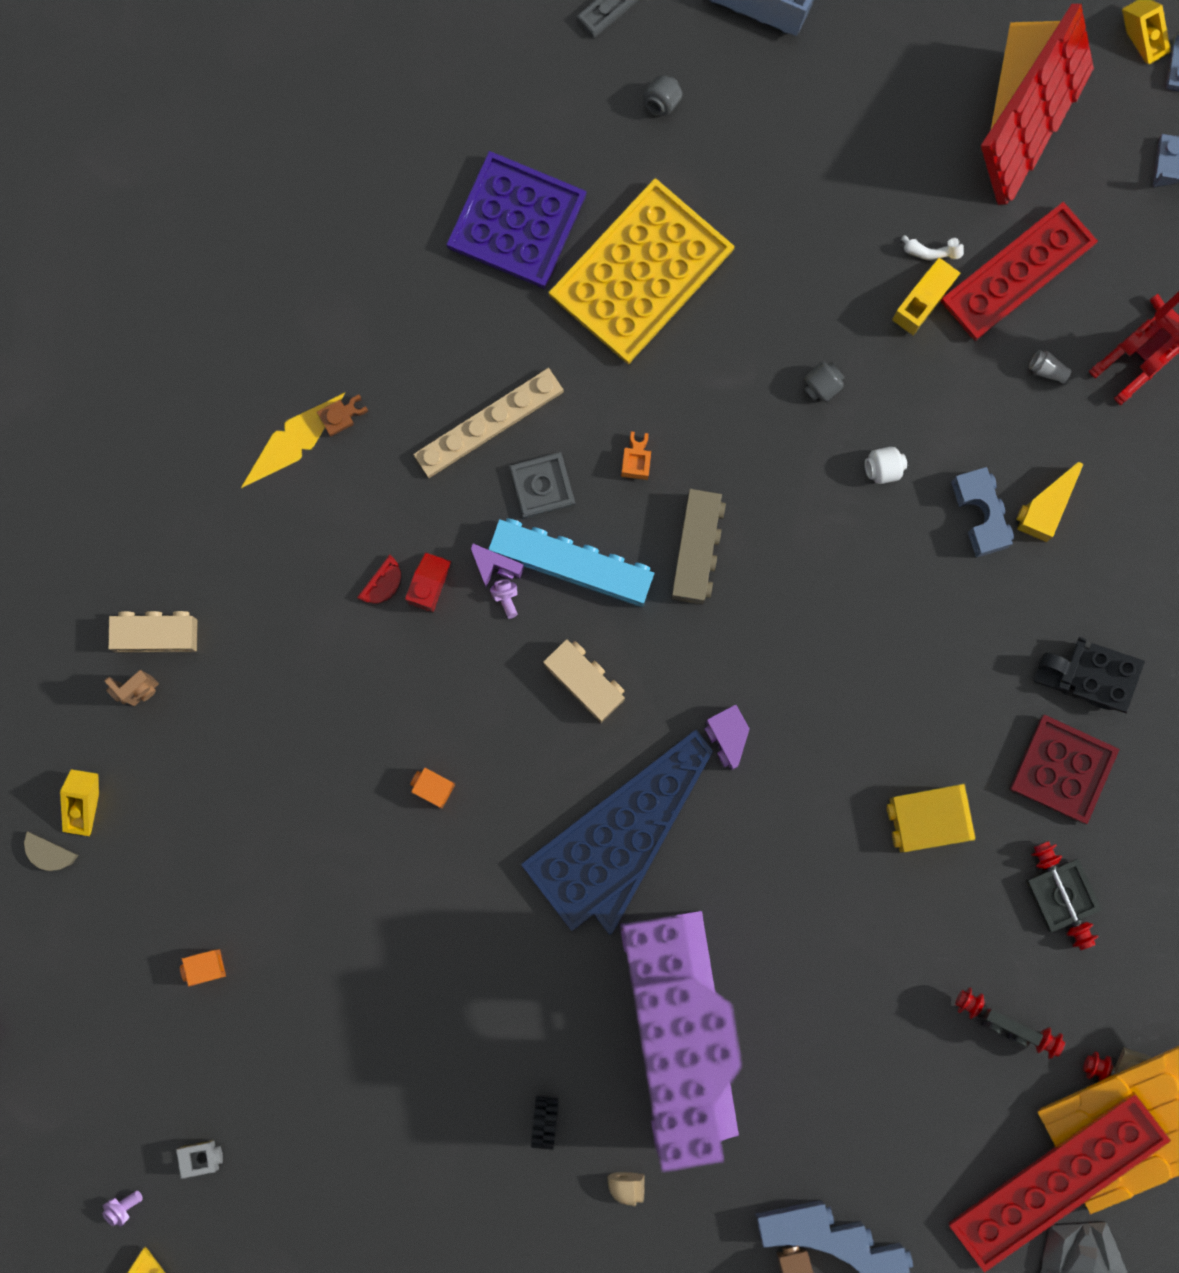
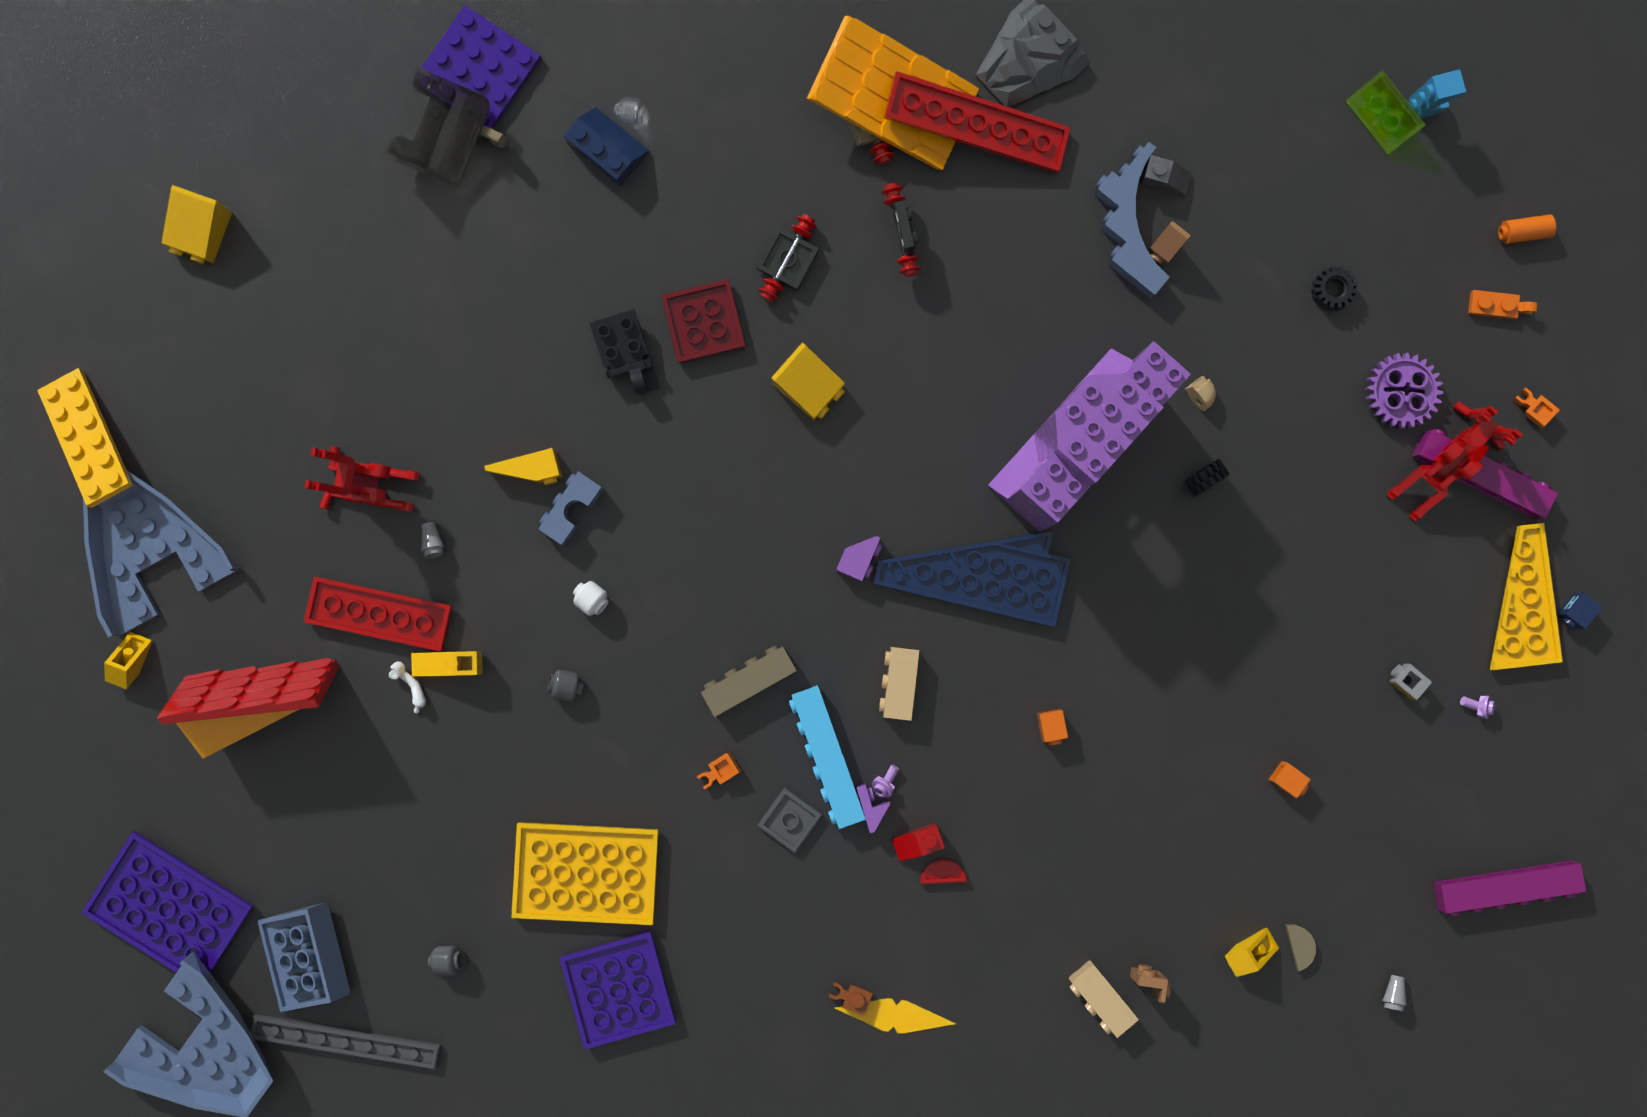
camera: 125 degrees left, 5 degrees up
(488, 423) = (776, 891): tan plate -> none

